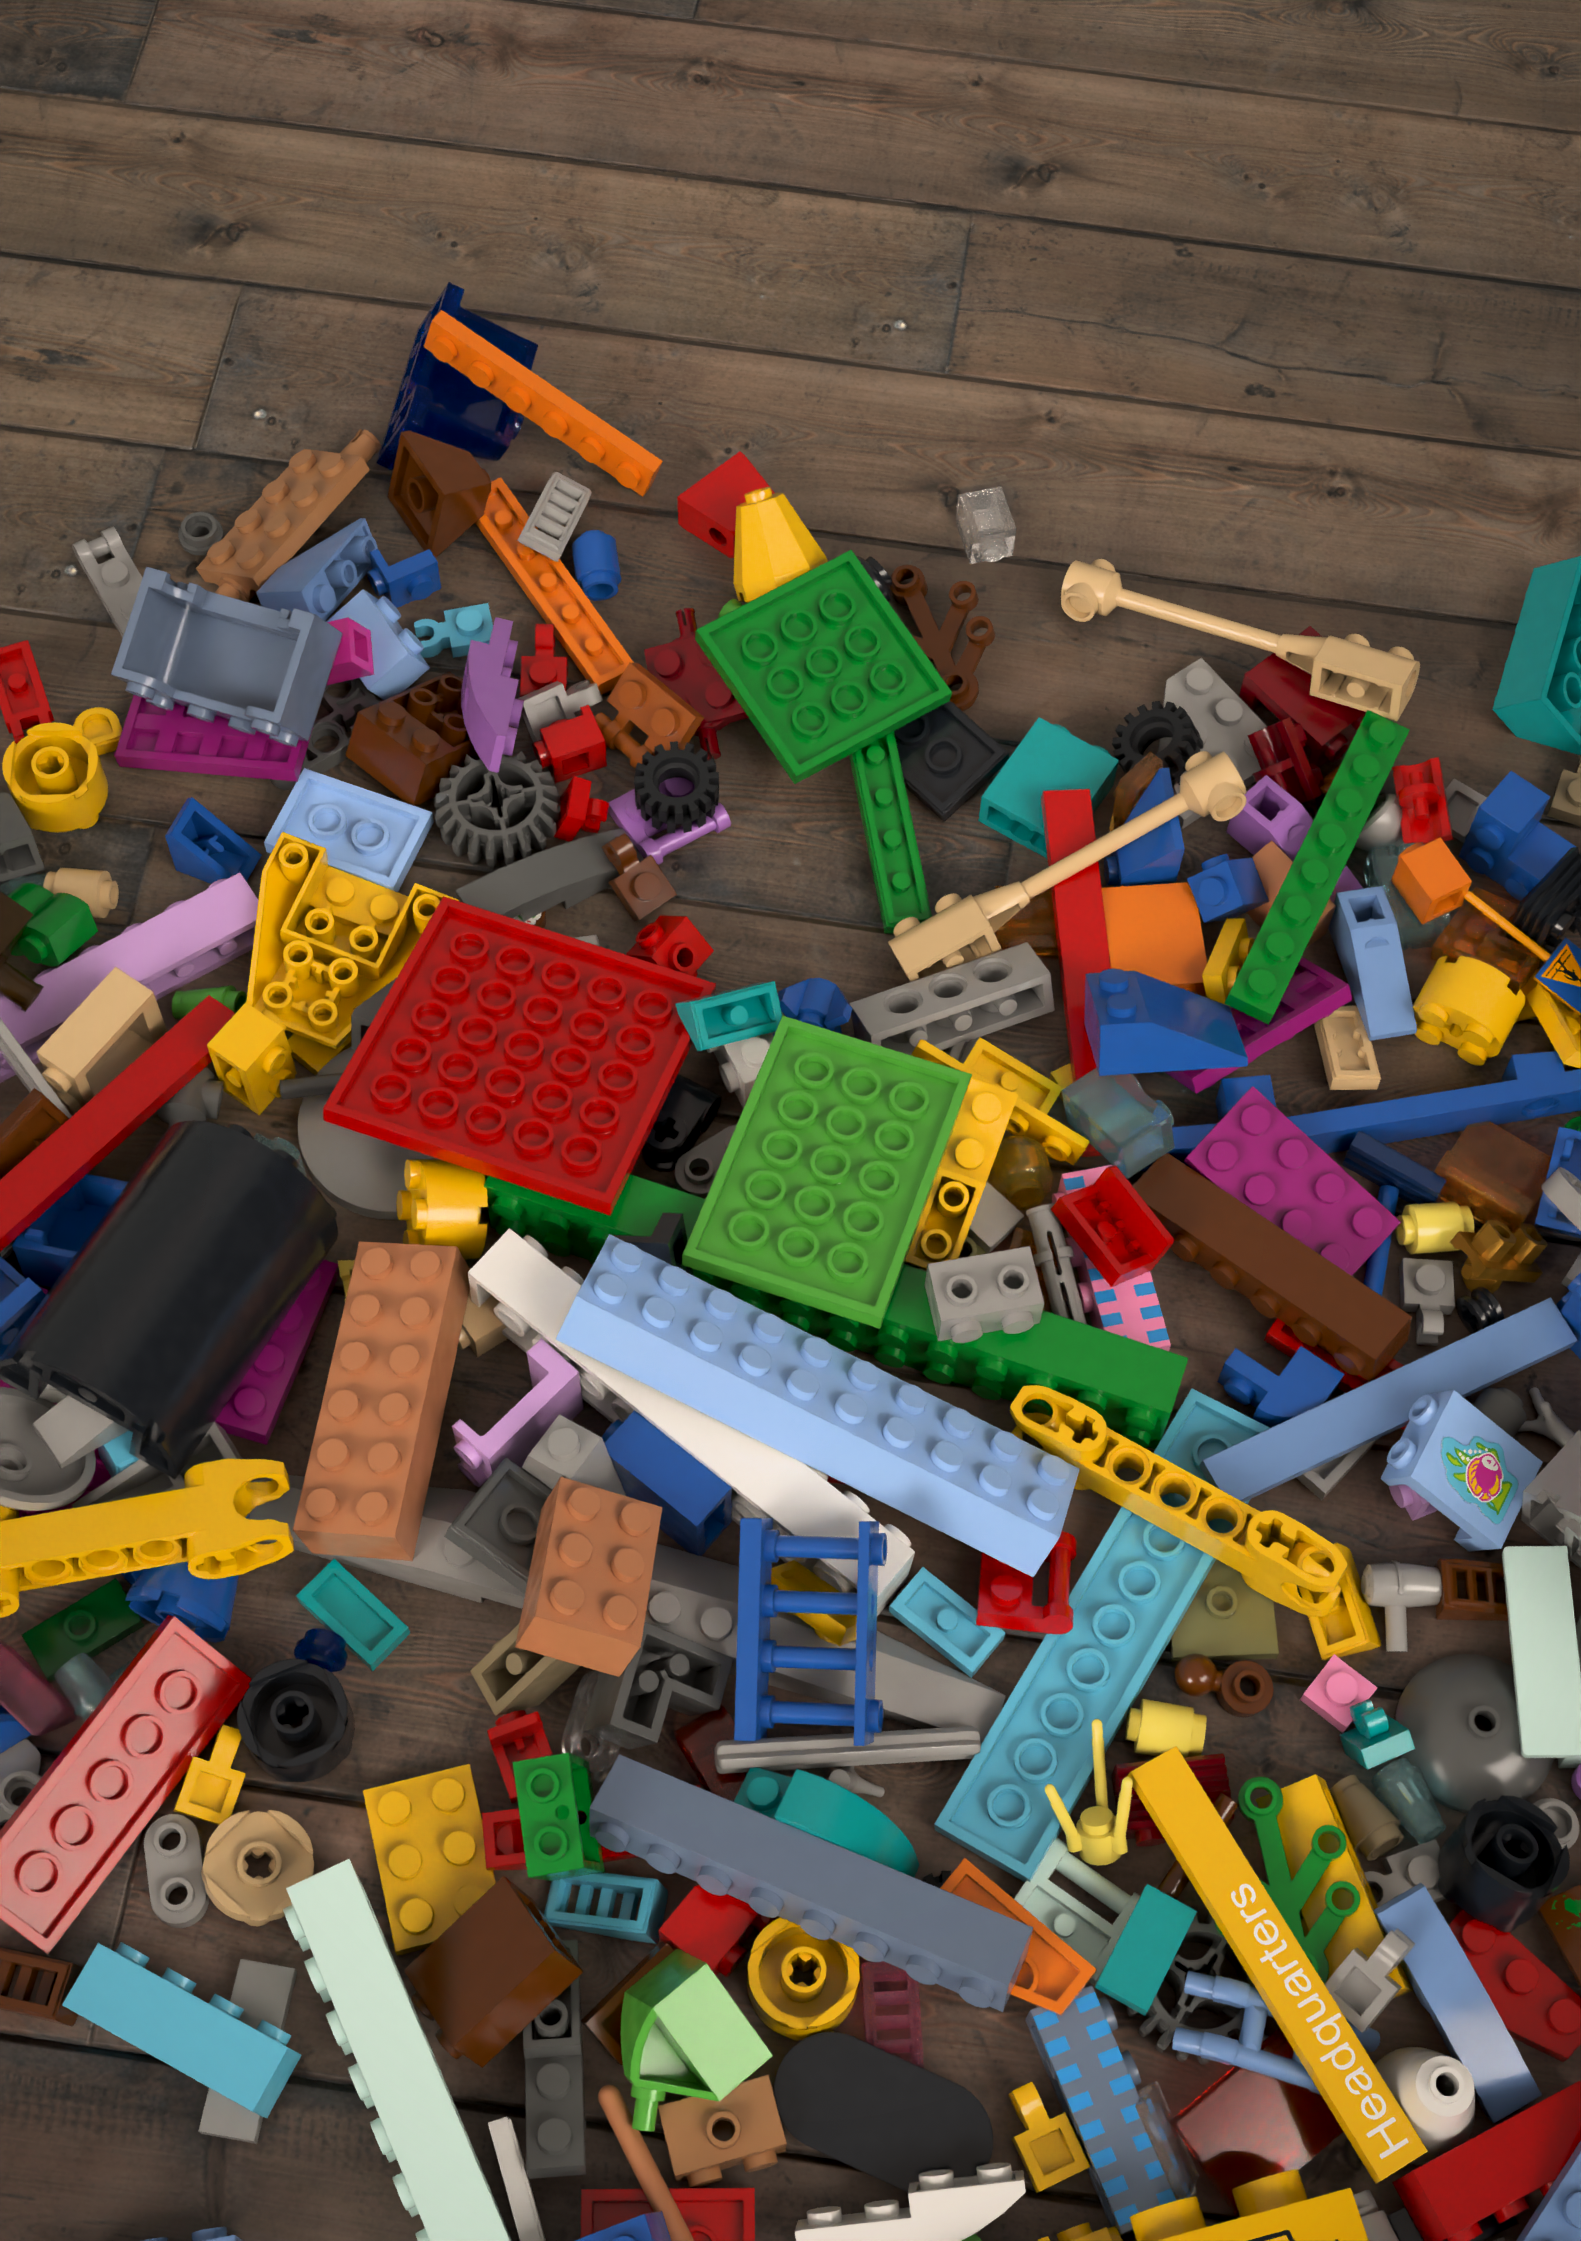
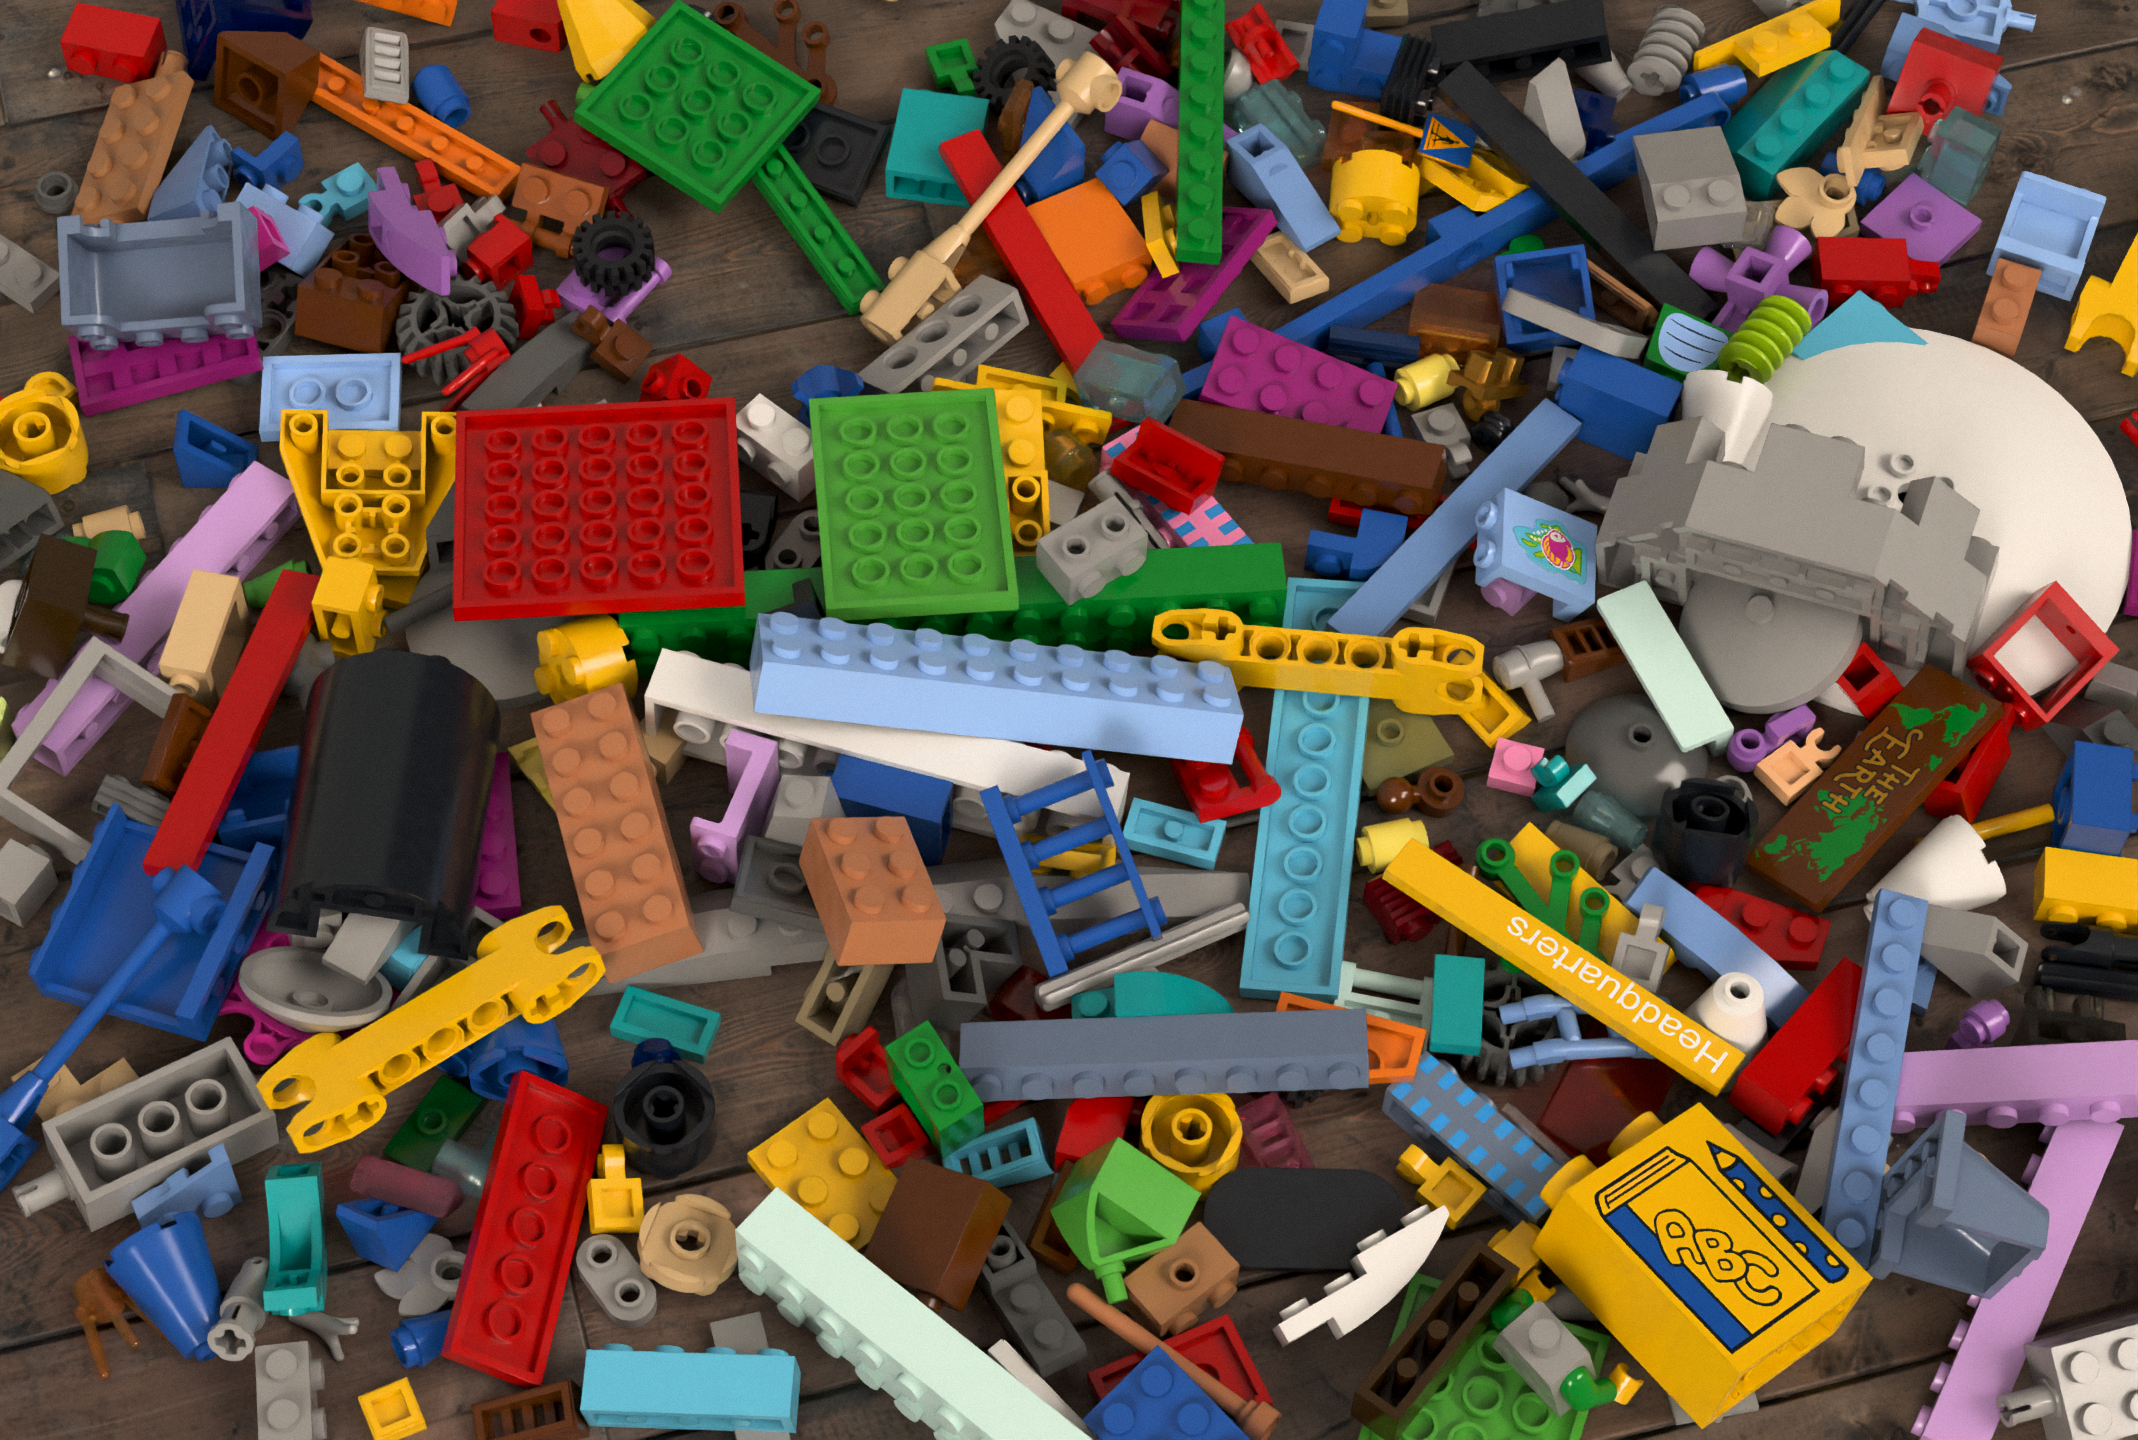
camera: 25 degrees left, 5 degrees down
(319, 405) = (113, 43): none -> red brick
(500, 848) = (484, 354): none -> red plant
(731, 1015) = (763, 415): teal slope -> none
(1098, 1833) = (1376, 943): light yellow plant -> none
(1103, 710) = (952, 66): none -> green plate
(1156, 1026) = (1123, 299): blue slope -> none
(1430, 880) = (1299, 102): orange brick -> none

